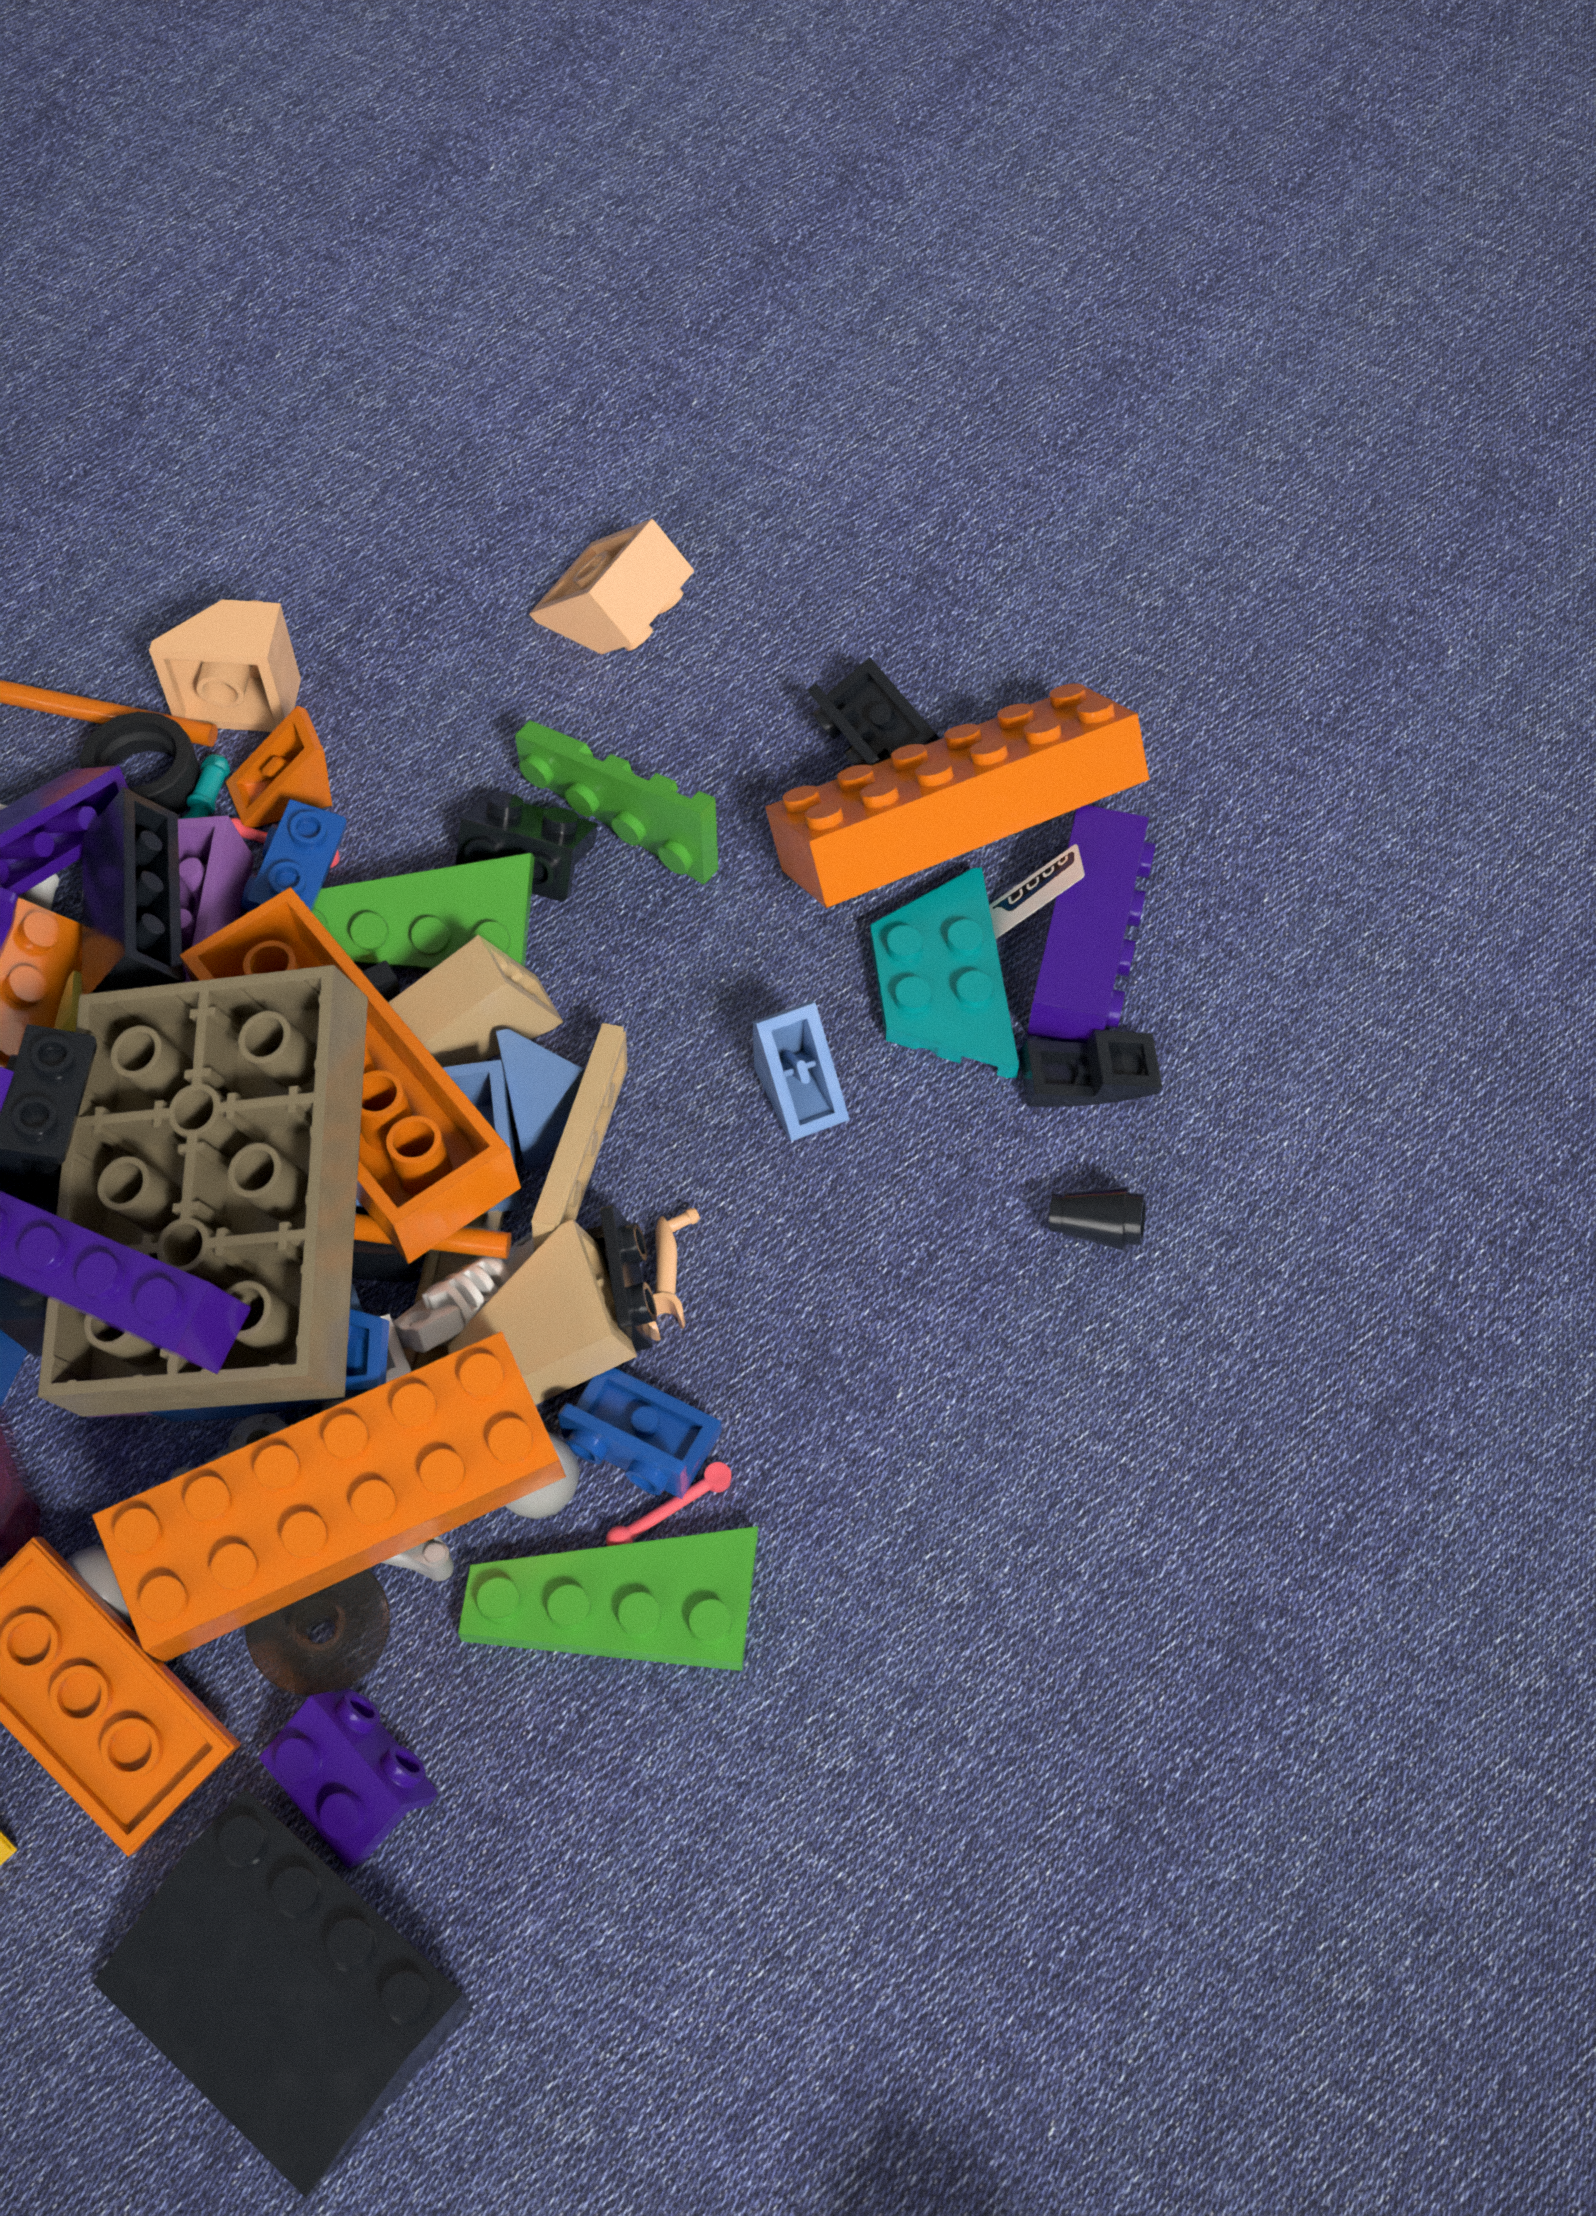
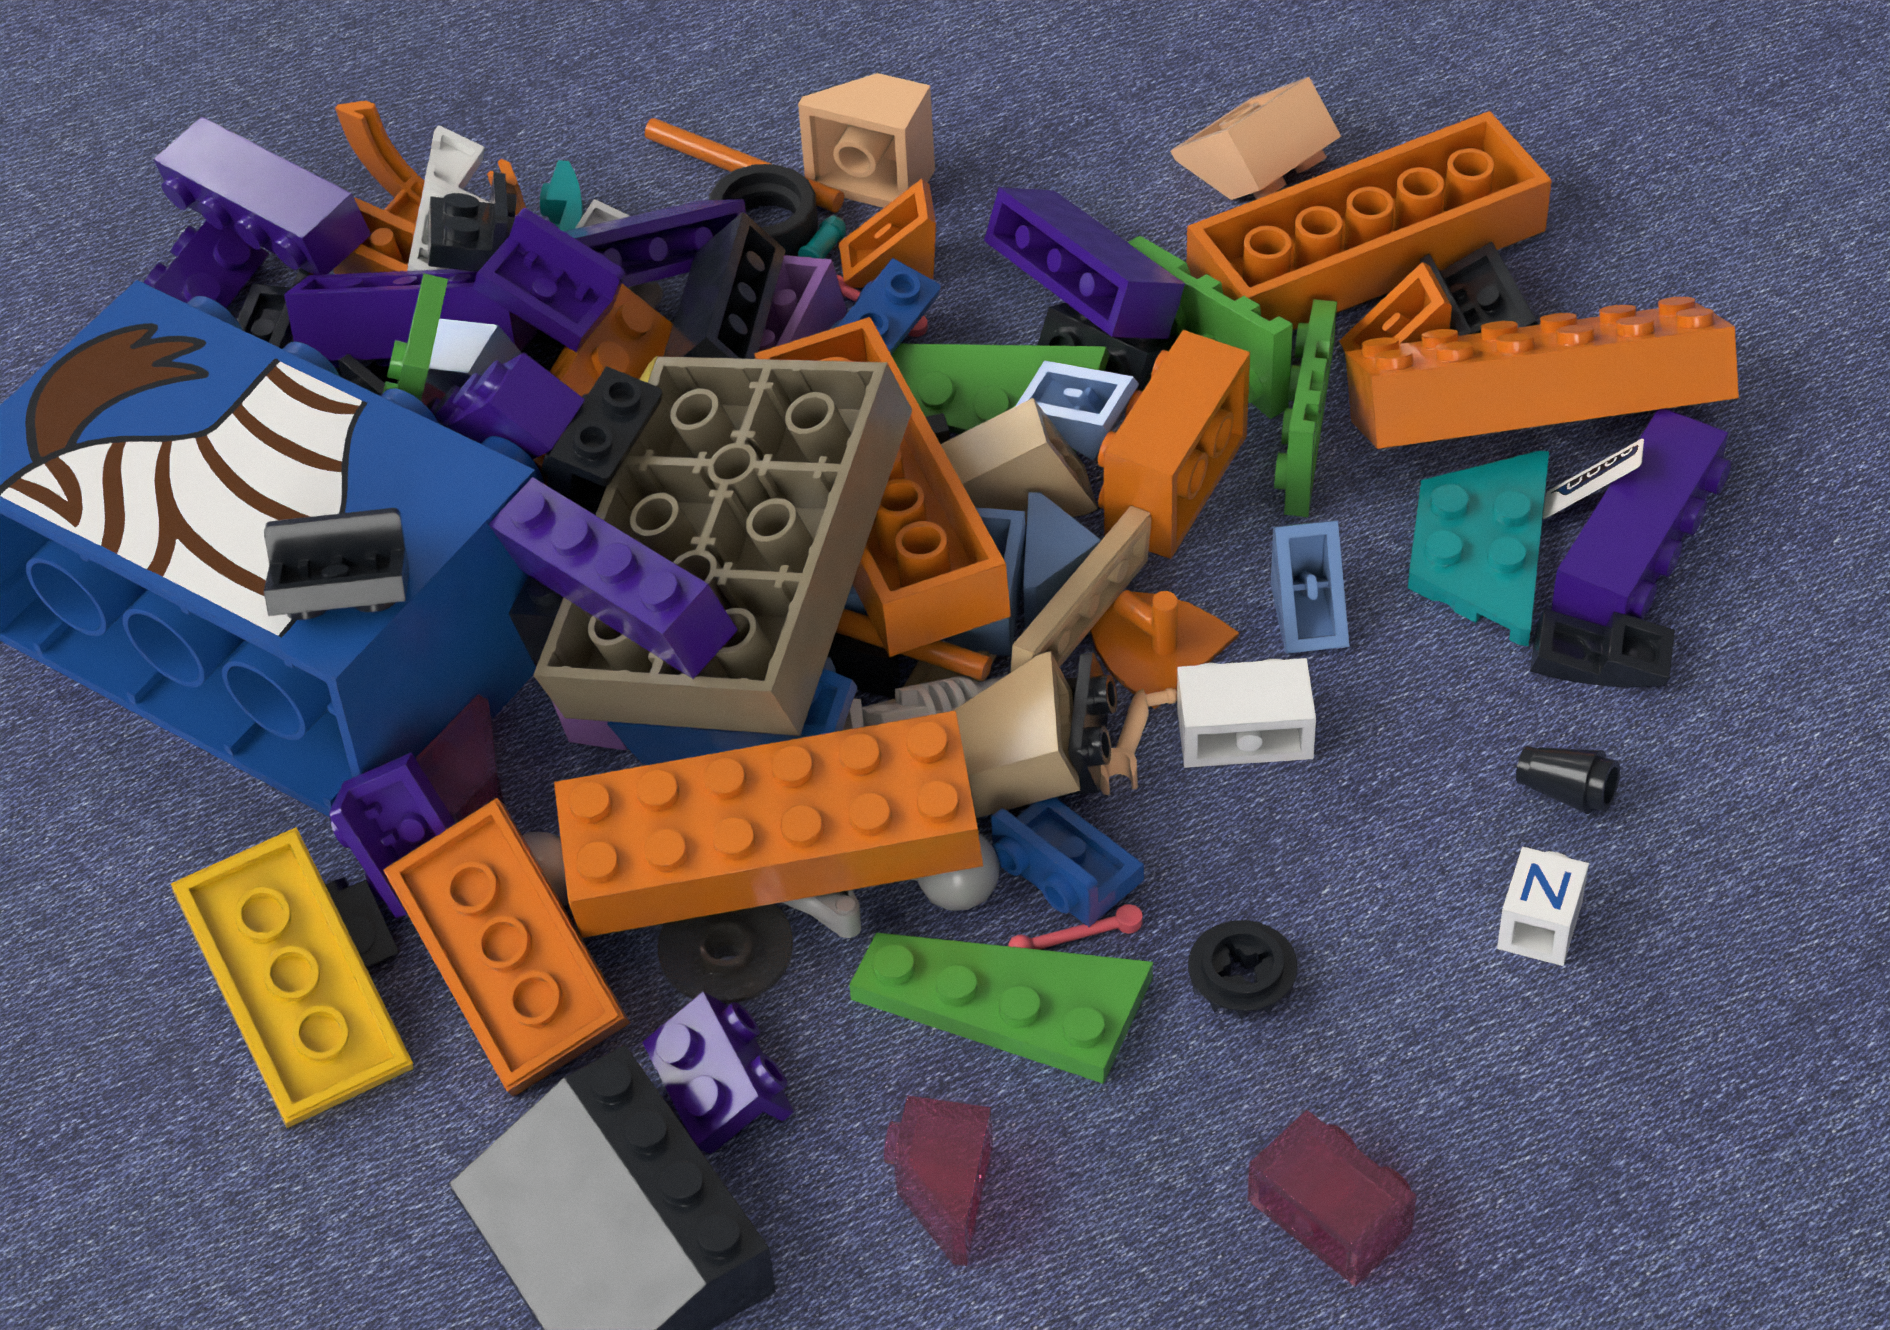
camera: 20 degrees right, 10 degrees down
(483, 763) = (1084, 263): none -> dark purple brick
(521, 922) = (1081, 402): none -> medium blue slope
(610, 1827) = (942, 1168): none -> clear pink slope
(626, 939) = (1177, 438): none -> orange brick
(662, 1156) = (1152, 634): none -> orange shield
(744, 888) = (1304, 422): none -> bright green wing
(749, 662) = (1373, 220): none -> orange brick
(773, 1221) = (1245, 712): none -> white brick
(808, 756) = (1405, 313): none -> orange slope
(846, 1478) = (1251, 946): none -> black gear
(1007, 1749) = (1332, 1197): none -> clear pink brick
(1117, 1366) = (1542, 905): none -> white brick

